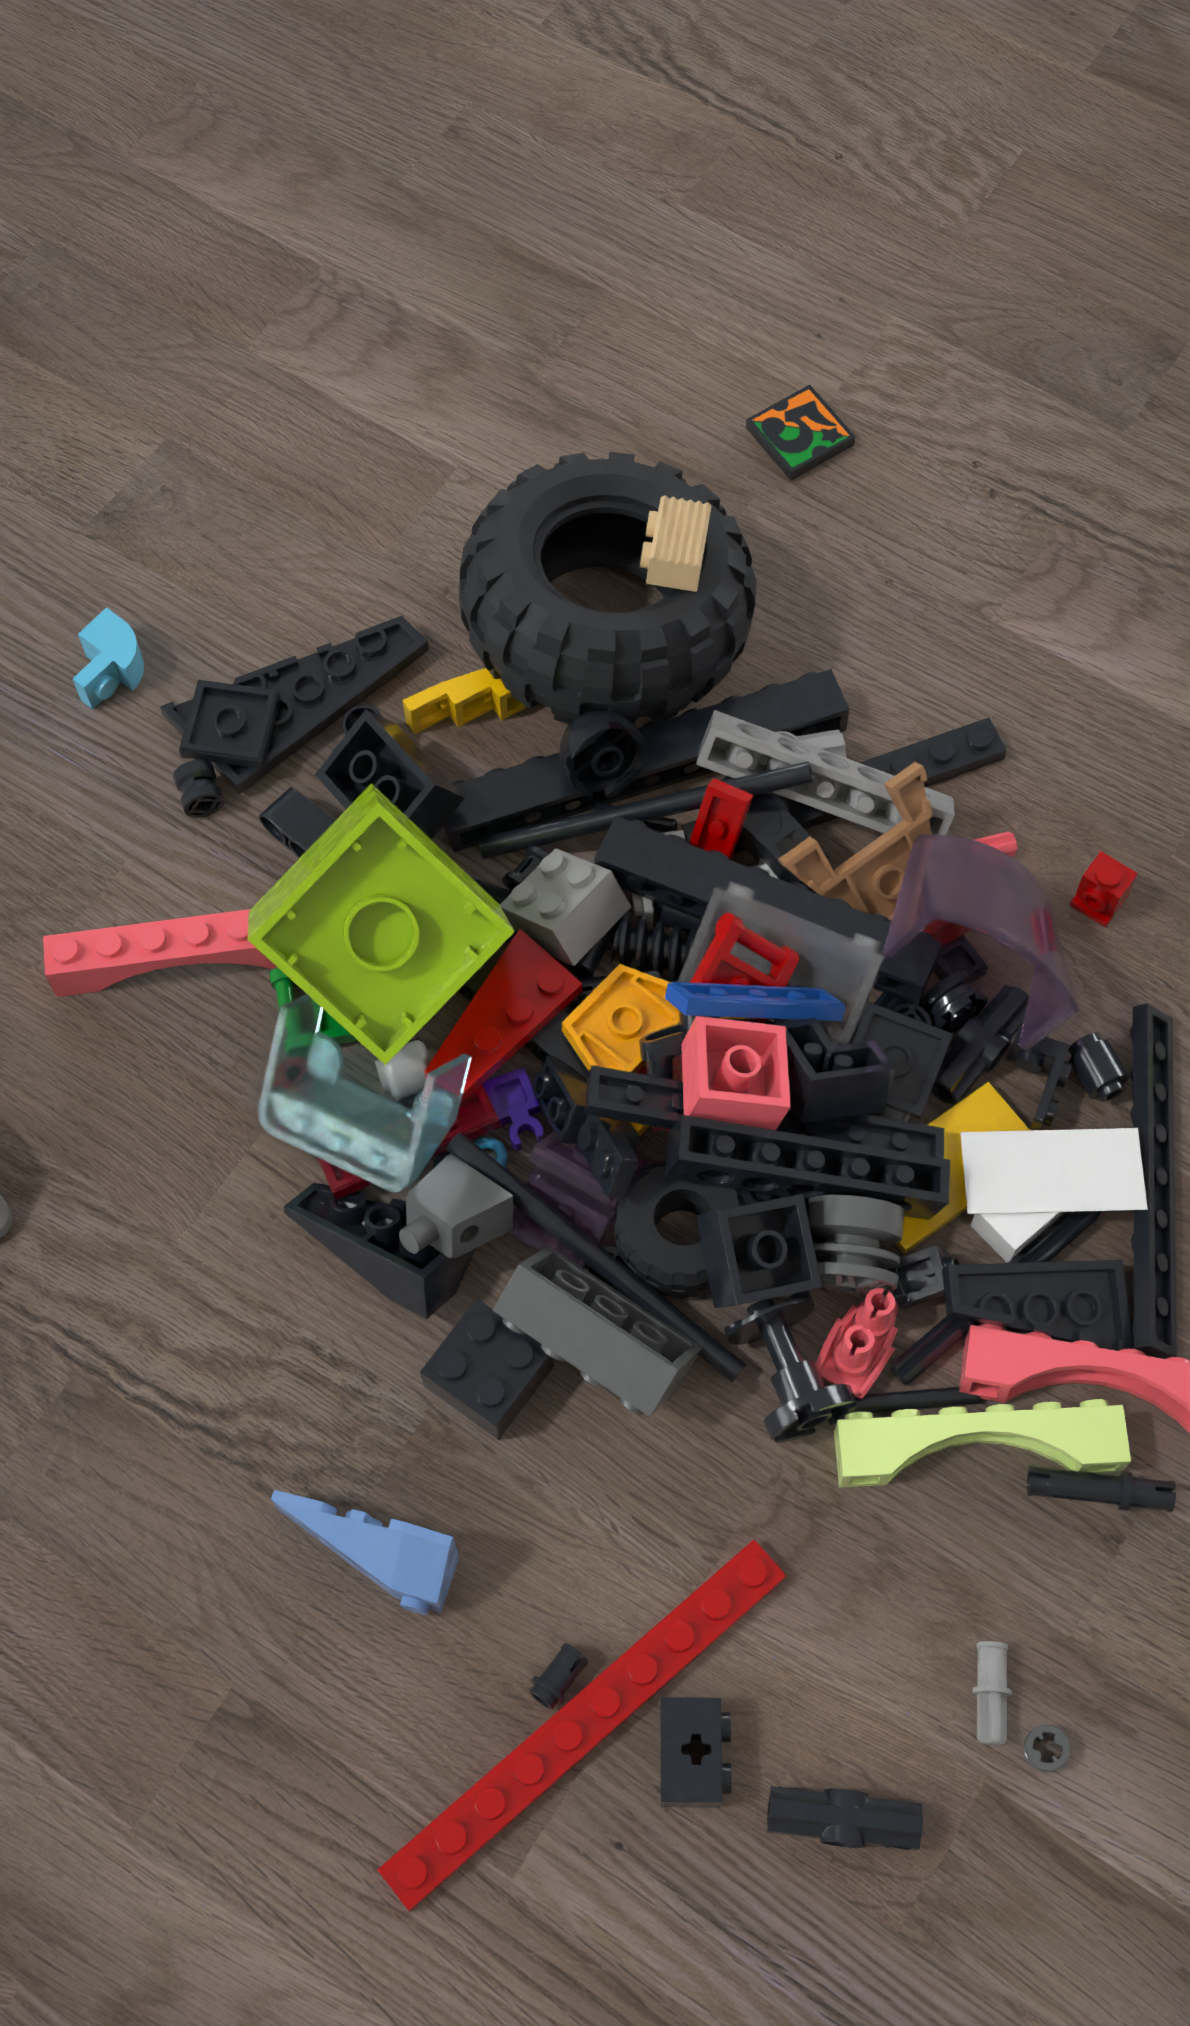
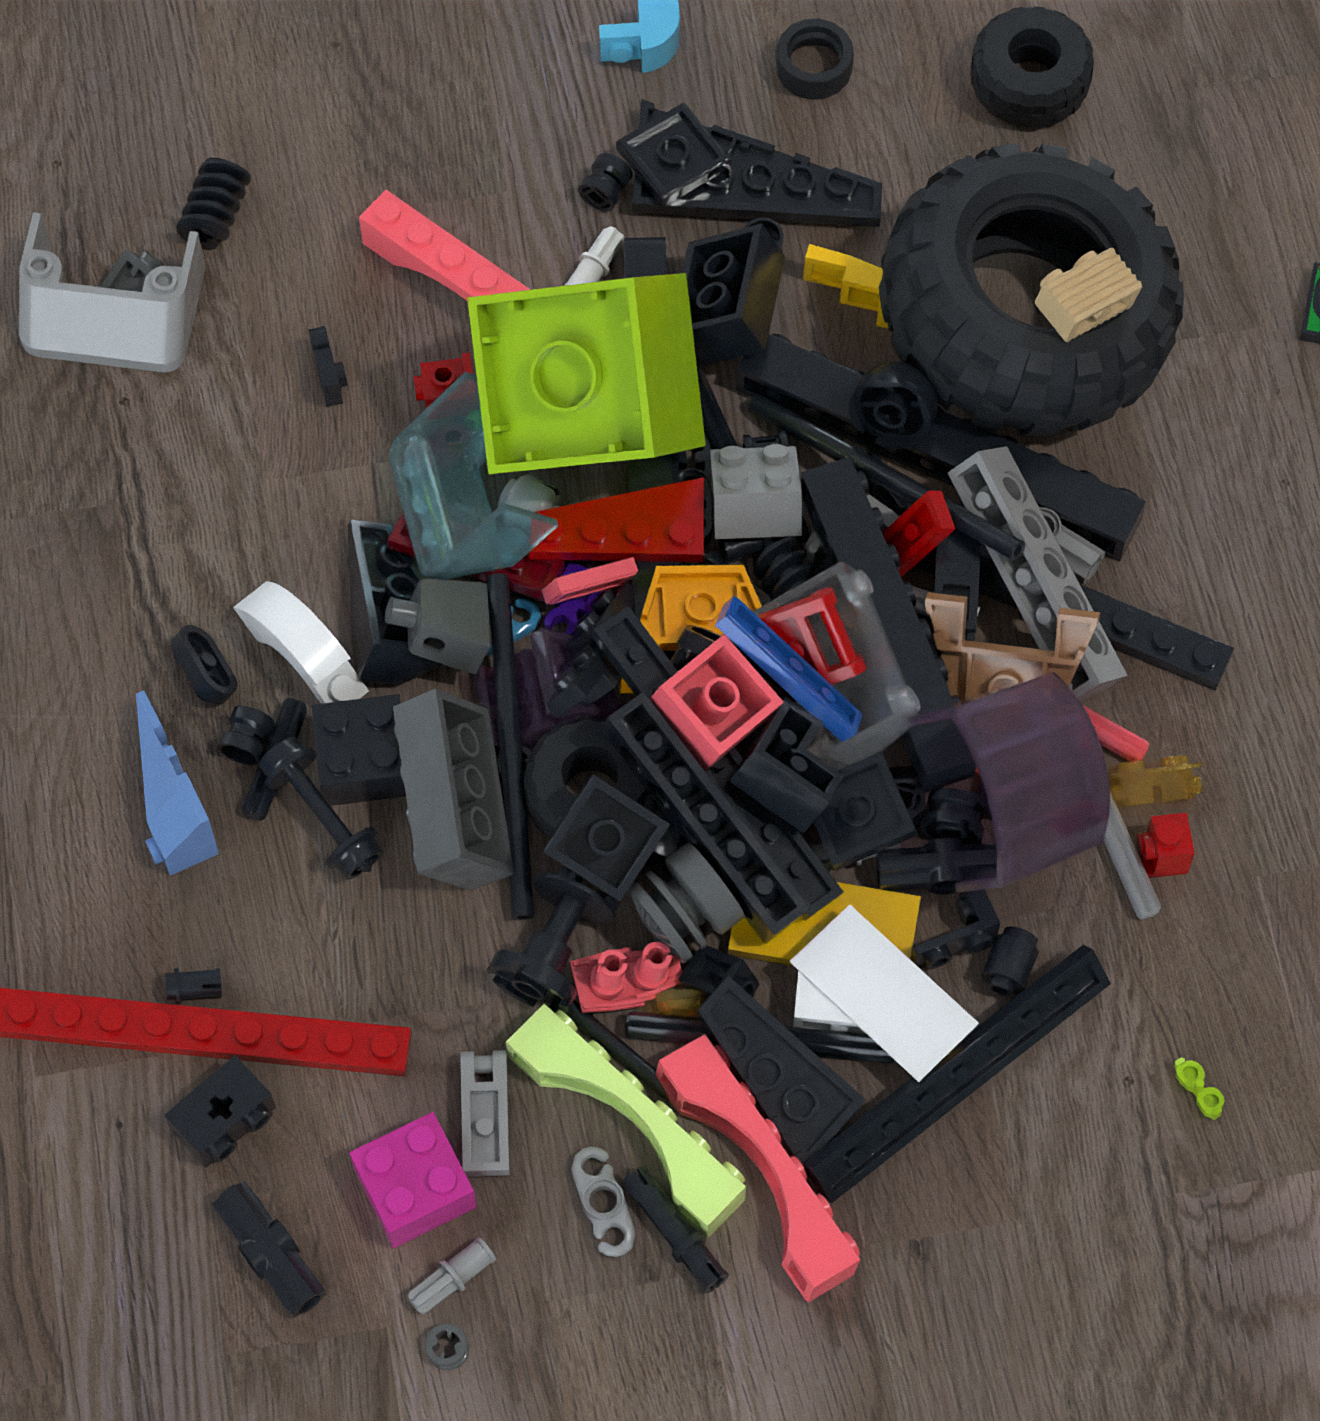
camera: 45 degrees right, 0 degrees up
(145, 1113) = (331, 374): none -> black plate
(246, 548) = (814, 33): none -> black tyre
(252, 1051) = (438, 376): none -> red brick
(254, 854) = (595, 262): none -> white axle
(292, 1425) = (204, 665): none -> black plate
(351, 1328) = (303, 640): none -> white arch
(385, 1444) = (246, 734): none -> black wheel
(410, 421) = (1026, 96): none -> black tyre
(424, 1442) = (286, 726): none -> black axle
(523, 1080) = (589, 581): none -> coral tile
(570, 1450) = (287, 764): none -> black piece
(878, 1546) = (485, 1115): none -> light grey plate
(889, 1650) = (413, 1180): none -> dark pink brick
(918, 1323) = (678, 1002): none -> clear yellow tile
(1049, 839) = (1173, 777): none -> clear yellow hinge
(1051, 1521) = (618, 1217): none -> light grey piece
(1097, 929) = (1130, 866): none -> light grey axle

